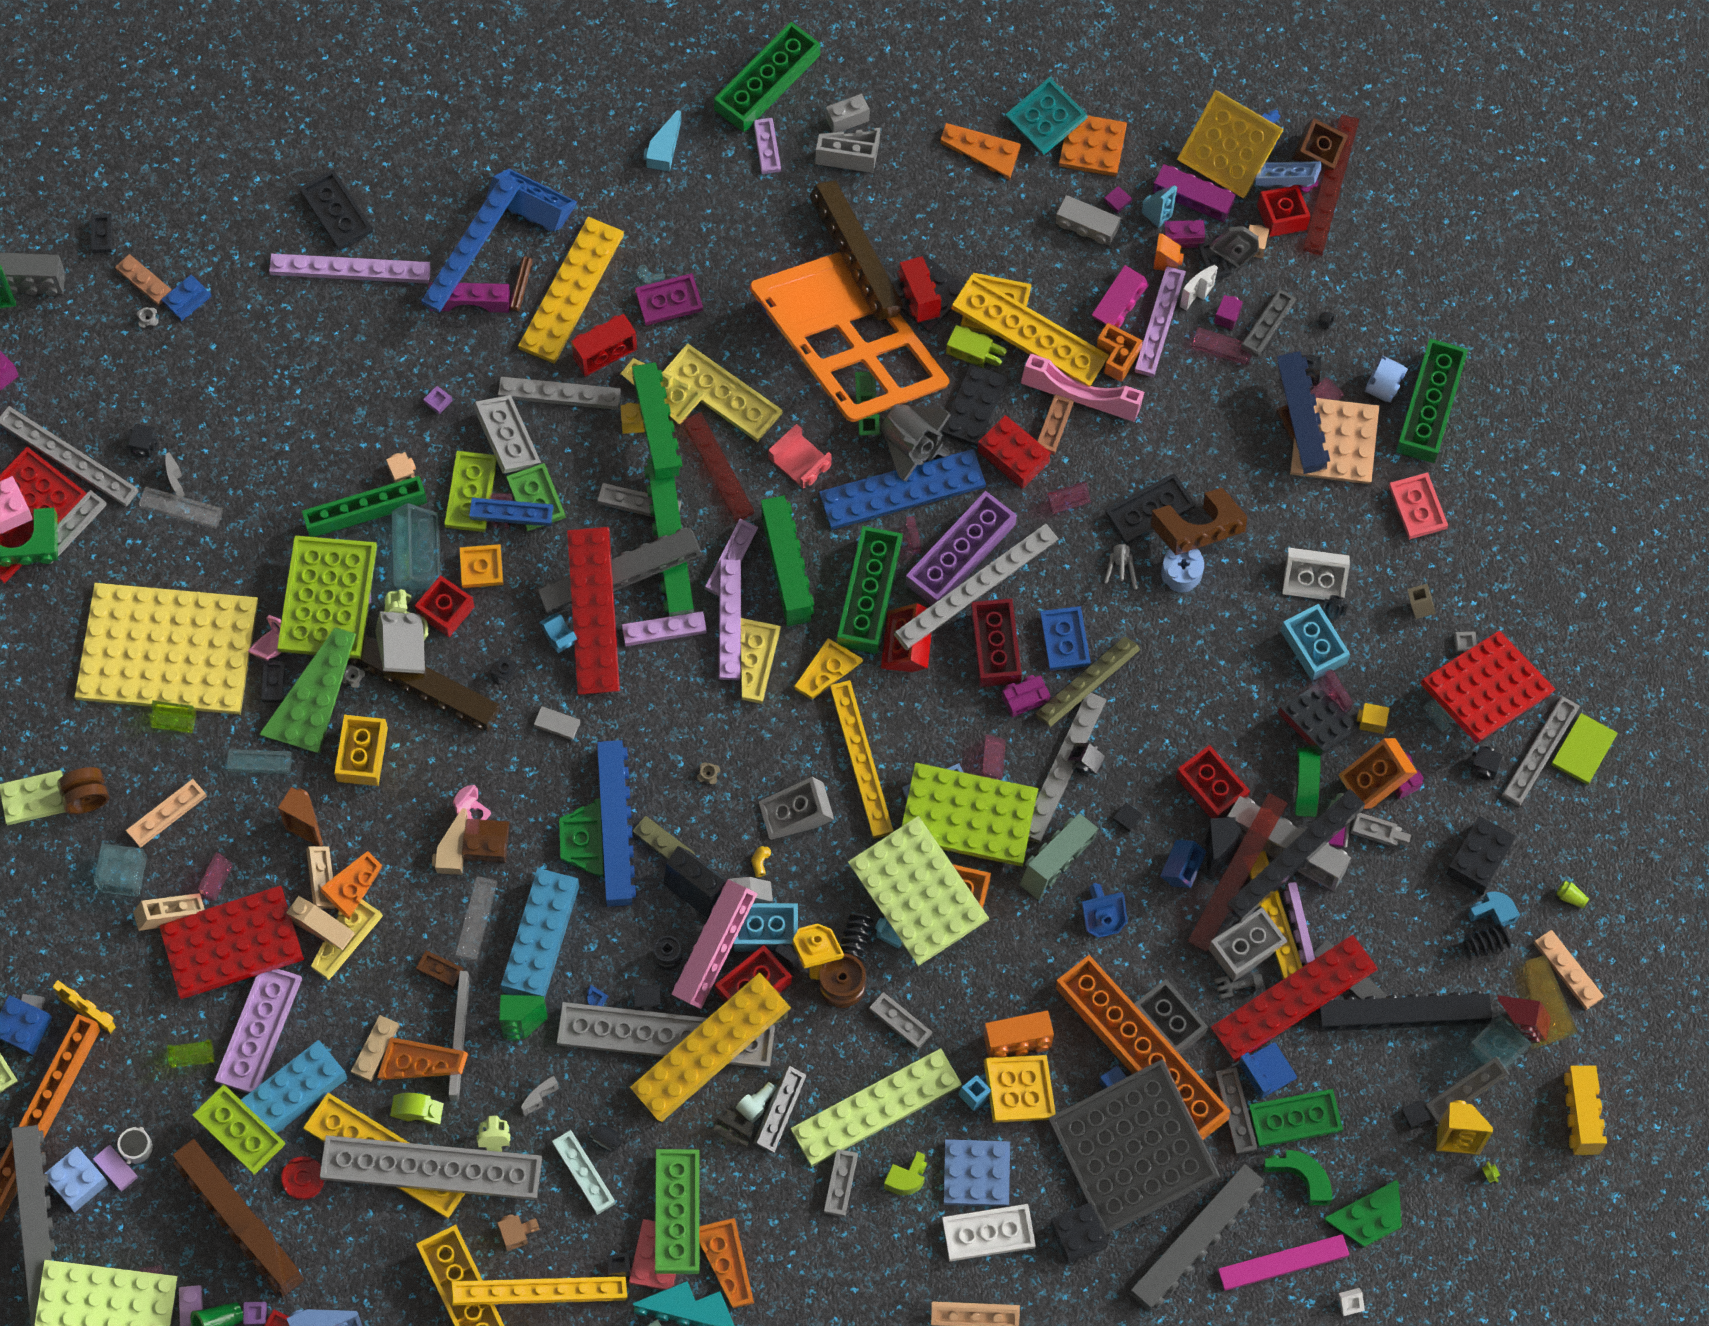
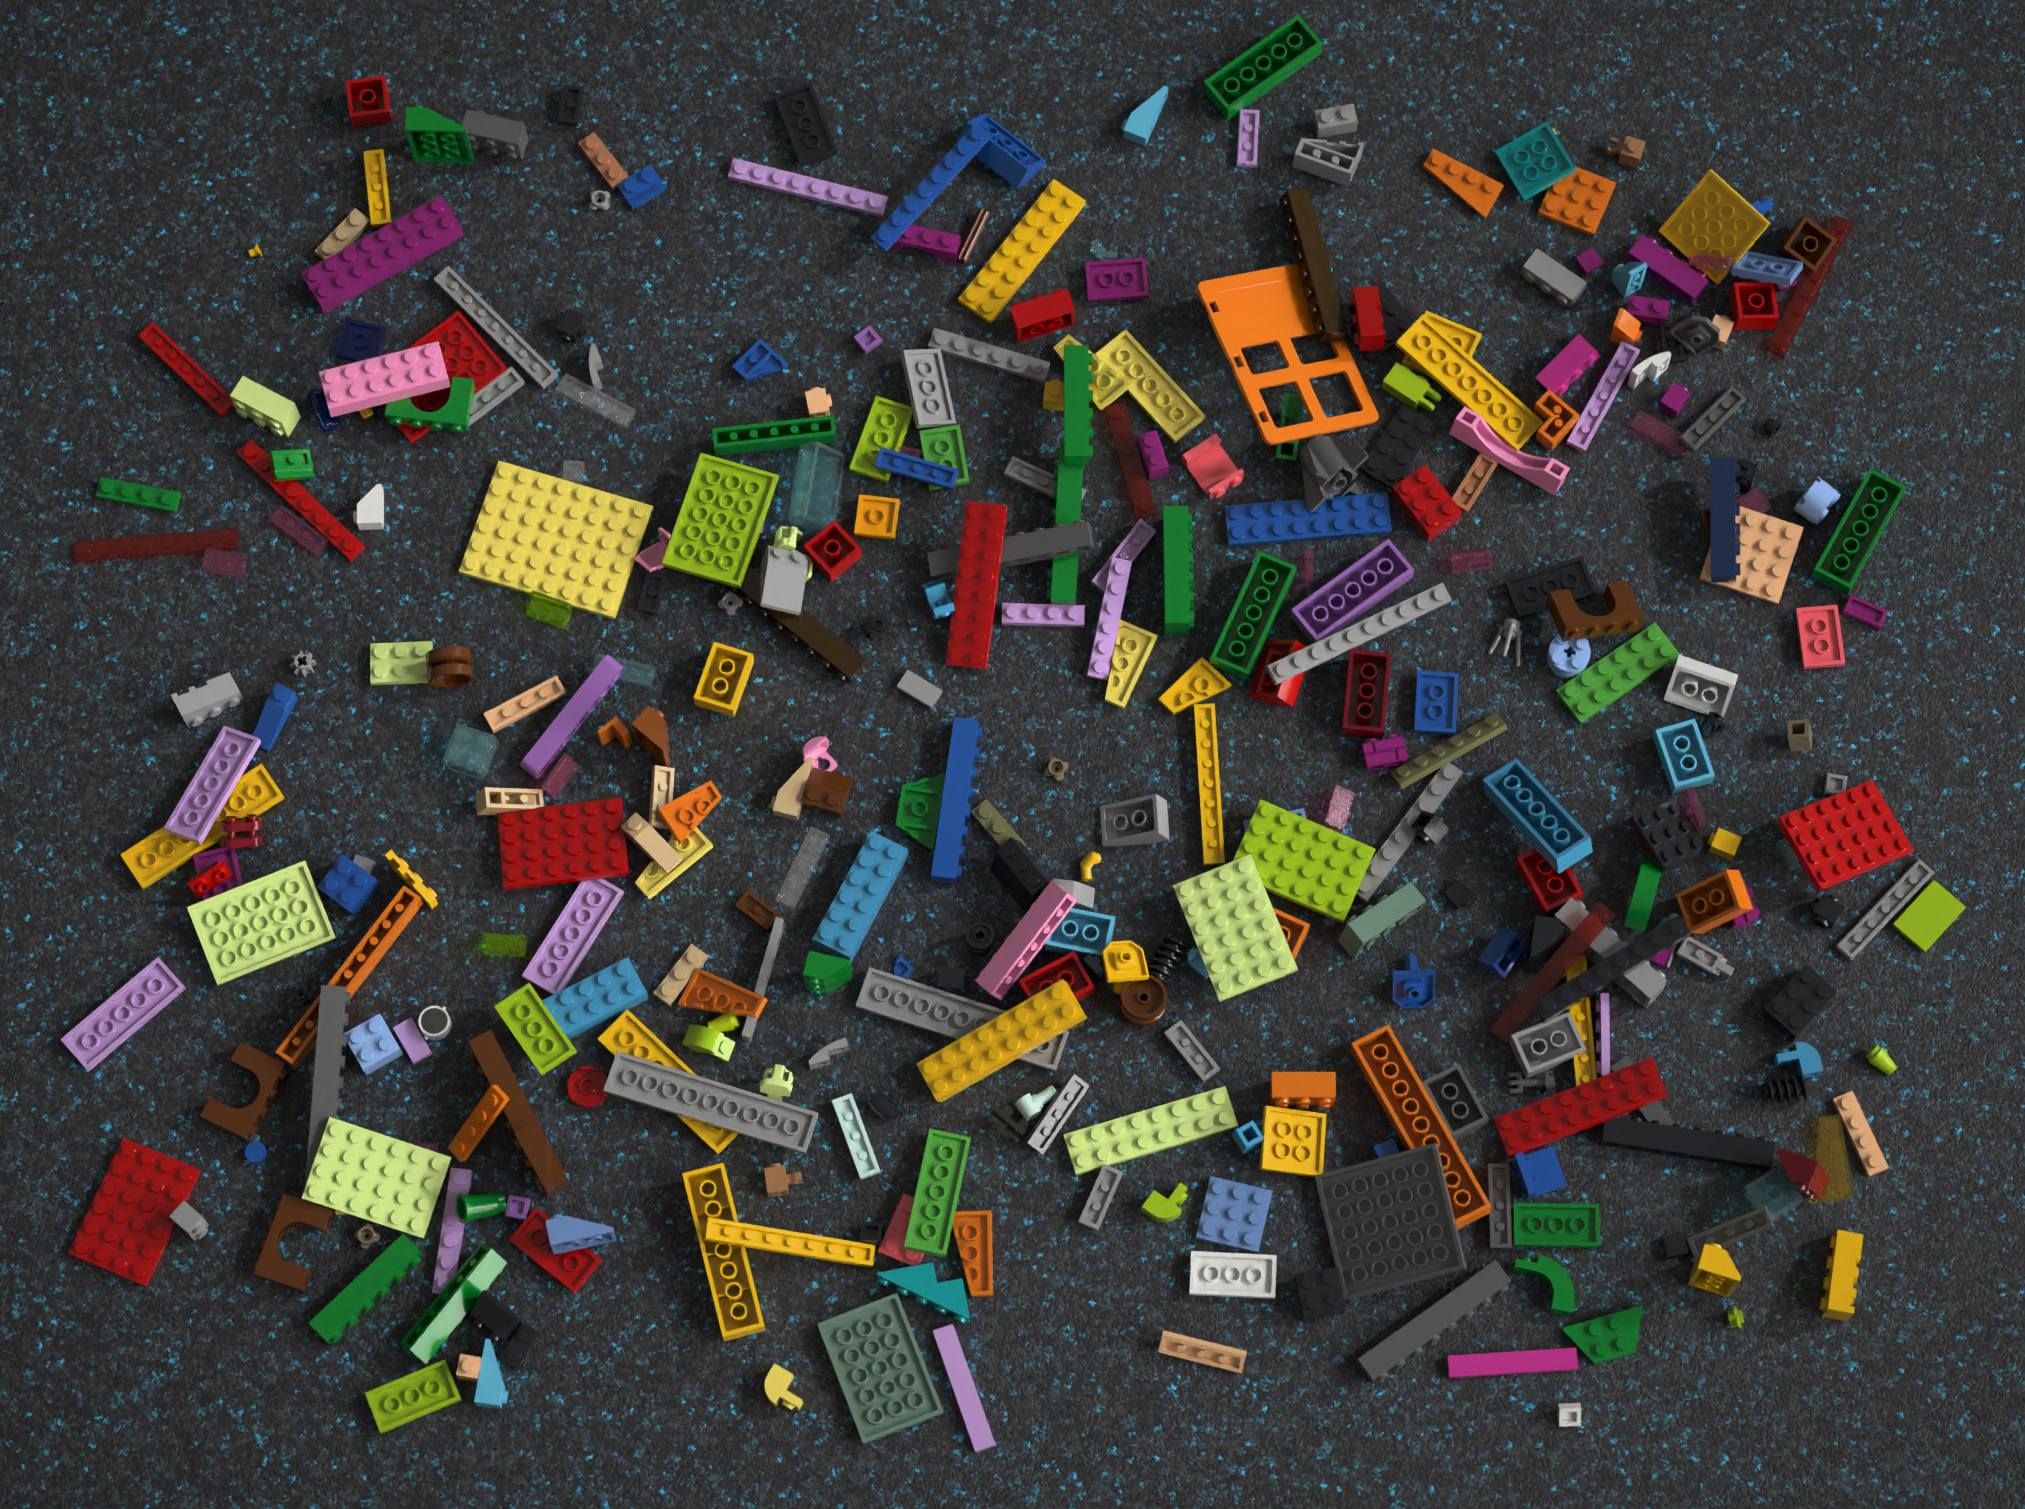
camera: 15 degrees right, 5 degrees up
(171, 579) = (573, 471): none -> clear tile
(198, 1235) = (478, 1123): none -> orange plate
(216, 816) = (572, 716): none -> medium lavender beam
(262, 819) = (614, 729): none -> orange panel
(309, 704) = (681, 625): bright green wing -> none
(335, 441) = (759, 362): none -> blue wing
(429, 1086) = (725, 1023): none -> neon yellow cone
(739, 456) = (1152, 455): none -> magenta brick
(1133, 92) = (1629, 151): none -> medium nougat brick
(1189, 724) = (1537, 815): none -> dark azure brick
(1226, 179) = (1719, 262): none -> clear pink plate
(1233, 577) = (1617, 673): none -> bright green plate
(1454, 475) = (1864, 612): none -> magenta tile

